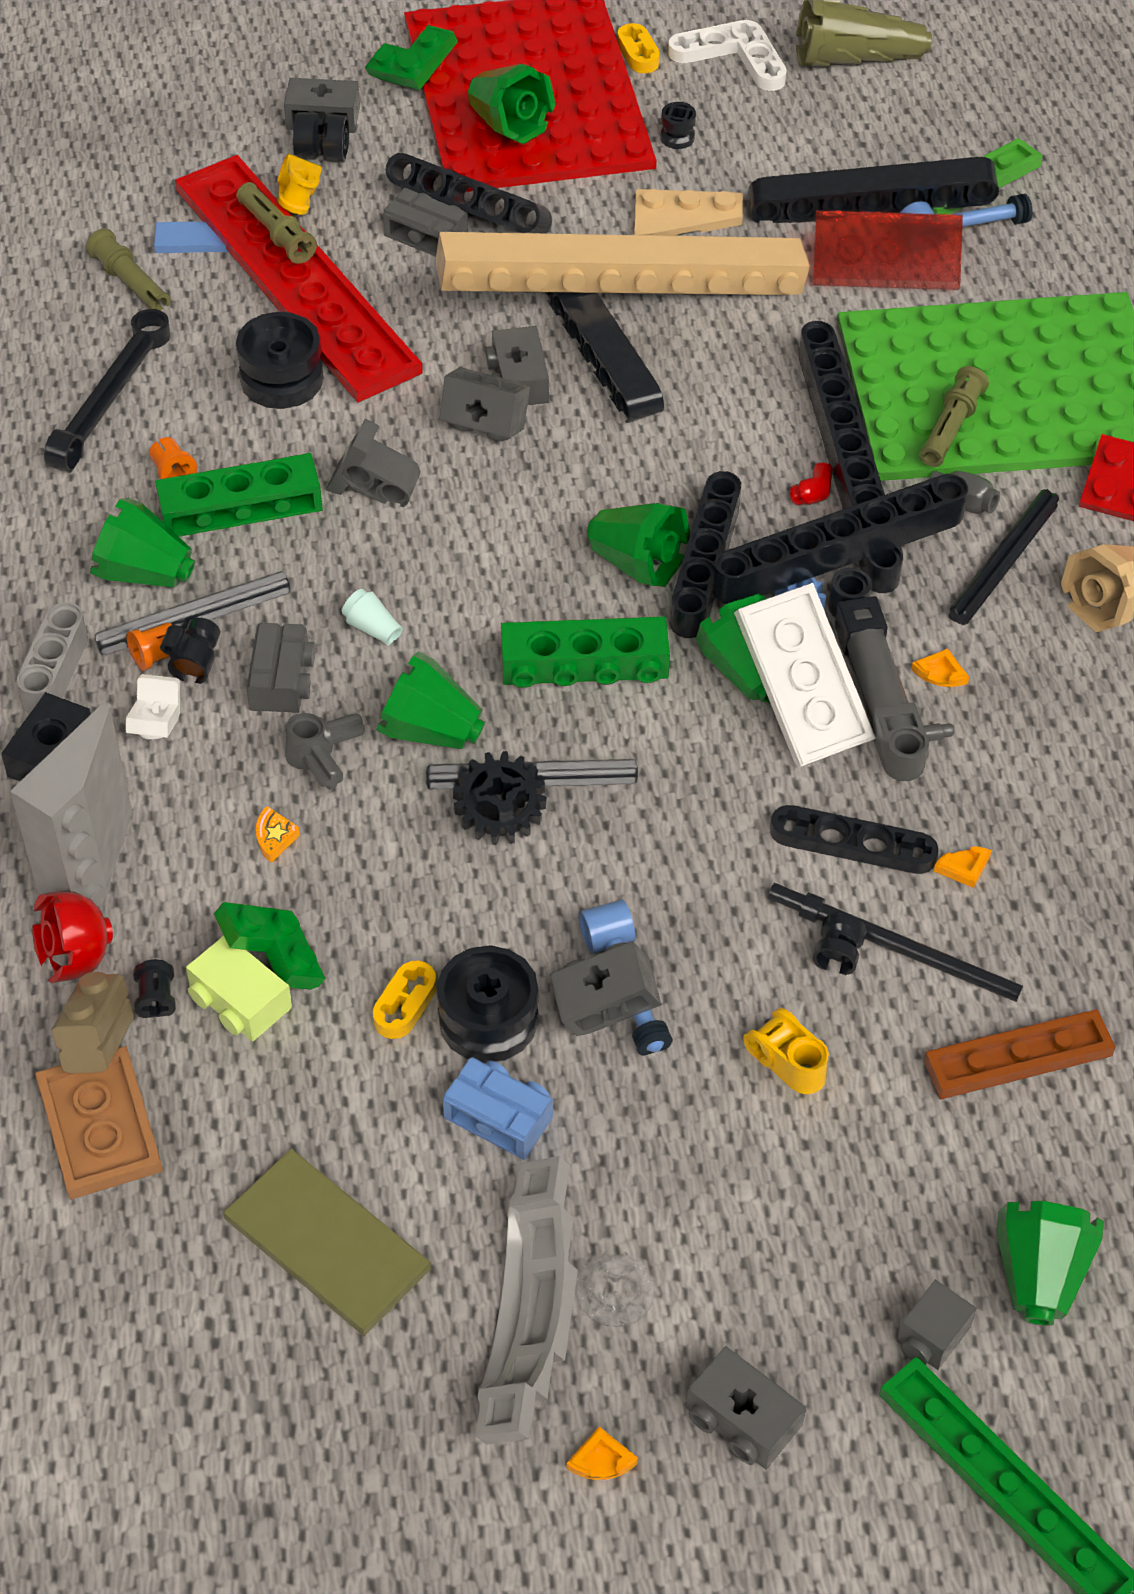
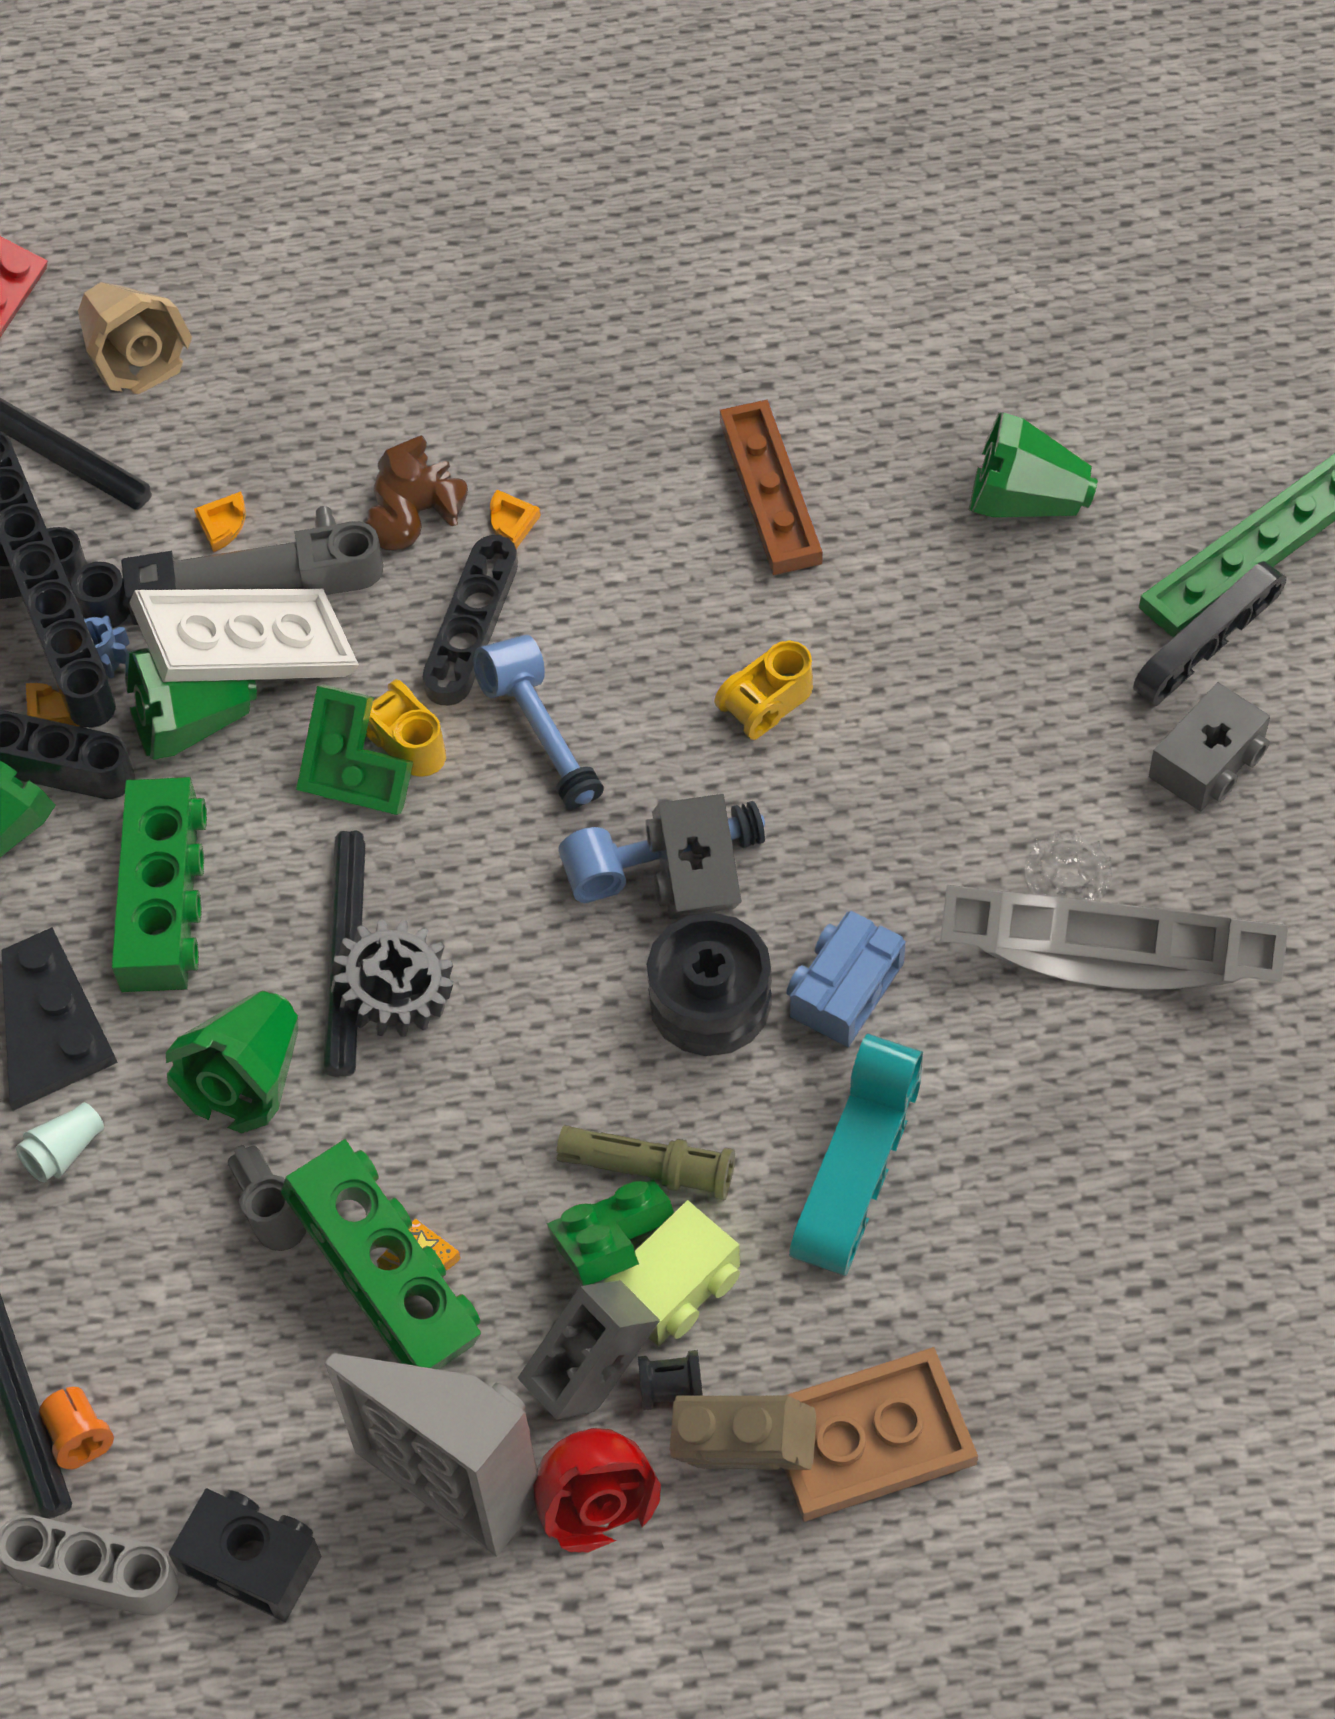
camera: 85 degrees left, 5 degrees up
(155, 708) = (197, 1415): white bracket -> none
(168, 922) = (588, 1349): none -> dark grey brick
(191, 650) = (95, 1369): black piece -> none
(255, 772) = (380, 1293): none -> green brick
(279, 667) = (140, 1253): dark grey brick -> none
(327, 1241) = (1021, 1165): olive tile -> none
(331, 1113) = (854, 1167): none -> teal beam
(335, 988) = (672, 1163): none -> olive pin
(396, 994) = (681, 1099): yellow beam -> none
(475, 605) = (47, 1021): none -> black wing
(601, 1457) = (1267, 886): light orange tile -> none
(696, 752) = (335, 759): none -> green plate
(735, 796) = (407, 730): none -> yellow piece
(794, 862) = (514, 670): none -> medium blue piece
(813, 907) = (569, 659): black bar -> none
(841, 939) = (623, 635): black wheel -> none
(883, 1420) = (1208, 632): none -> black beam
(935, 1325) = (1103, 578): dark grey brick -> none
(981, 784) = (409, 486): none -> reddish brown animal

